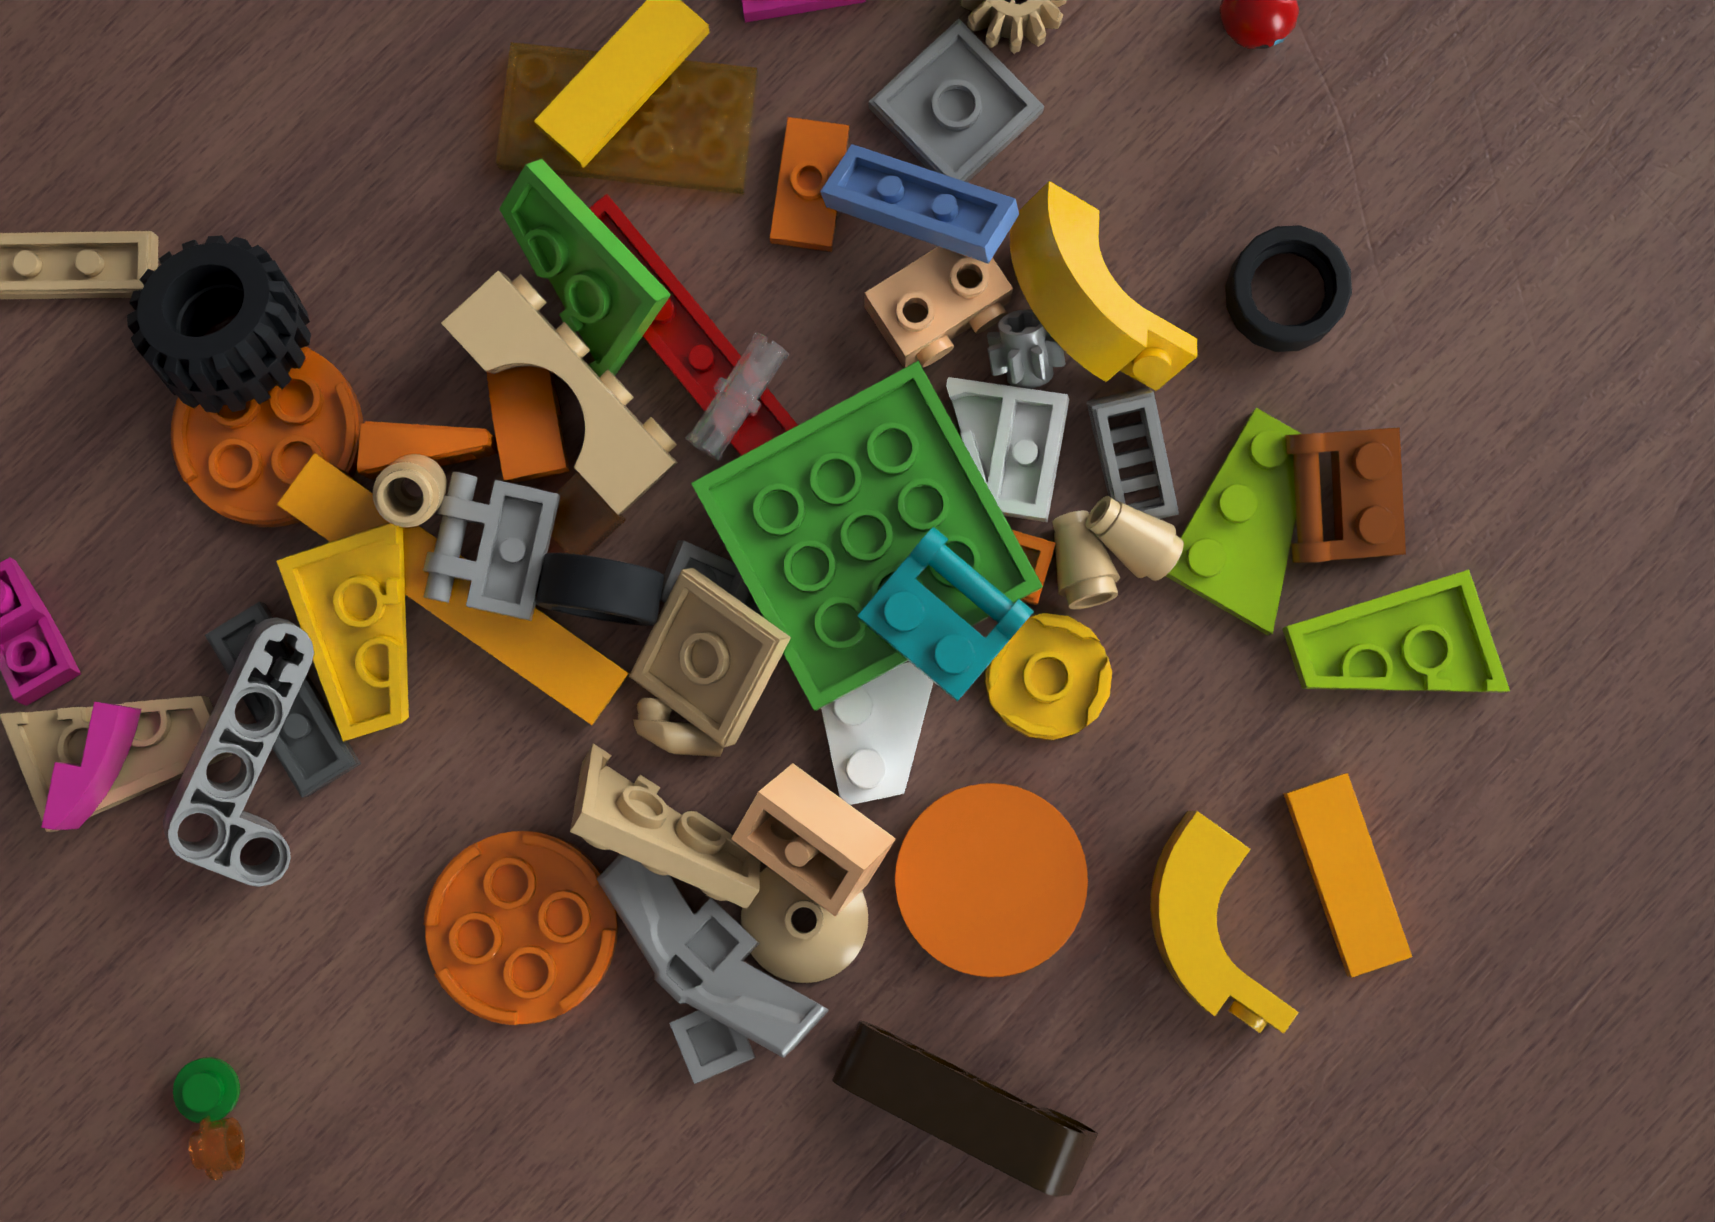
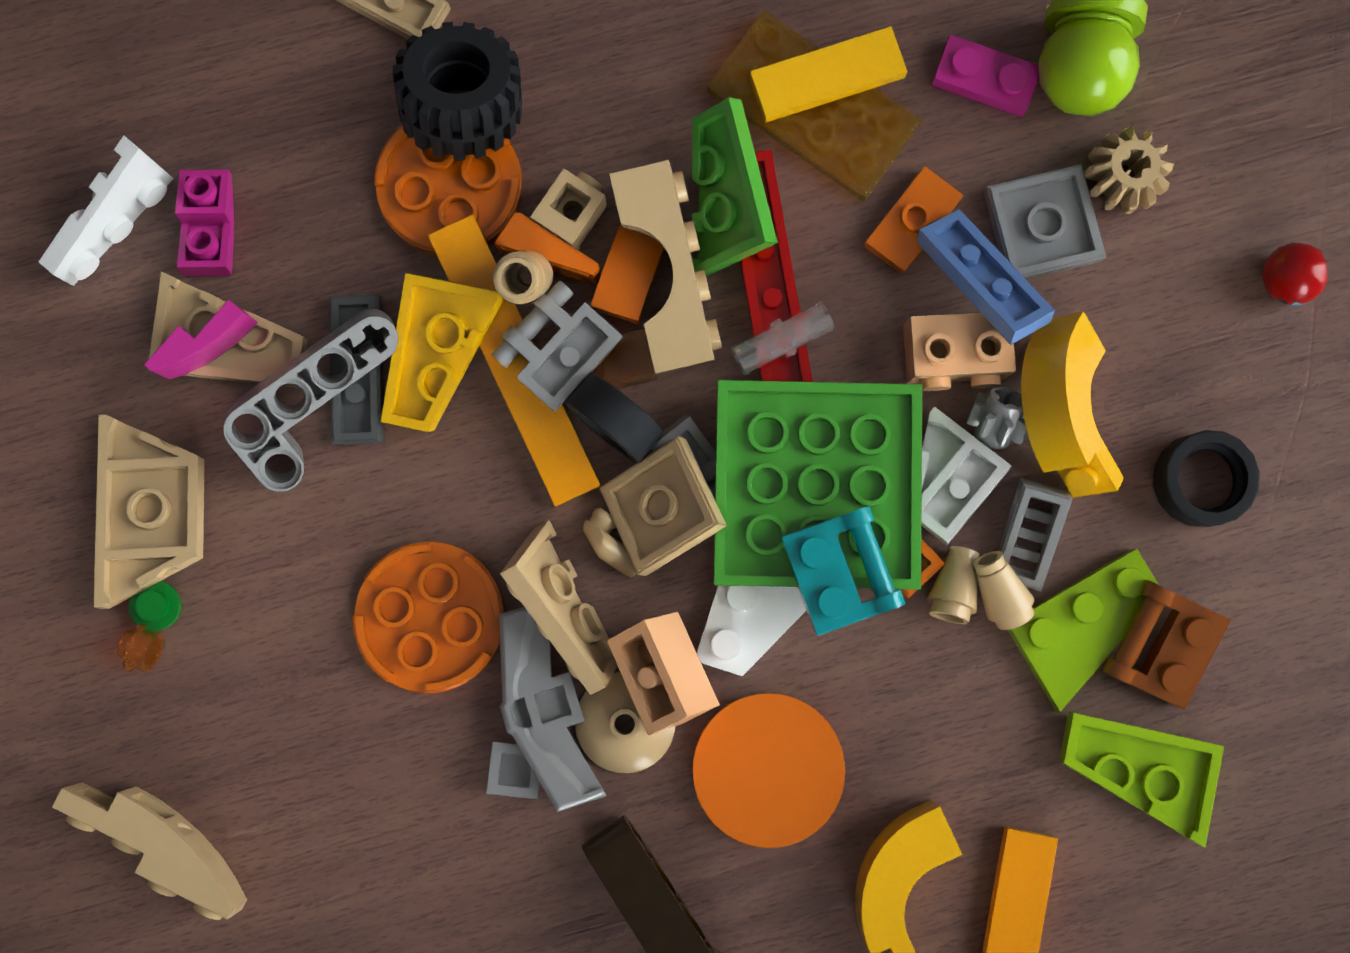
camera: 25 degrees right, 0 degrees up
(134, 991) = (144, 511): none -> tan wing
(406, 368) = (566, 192): none -> tan brick
(1049, 678) = (887, 655): yellow tile -> none

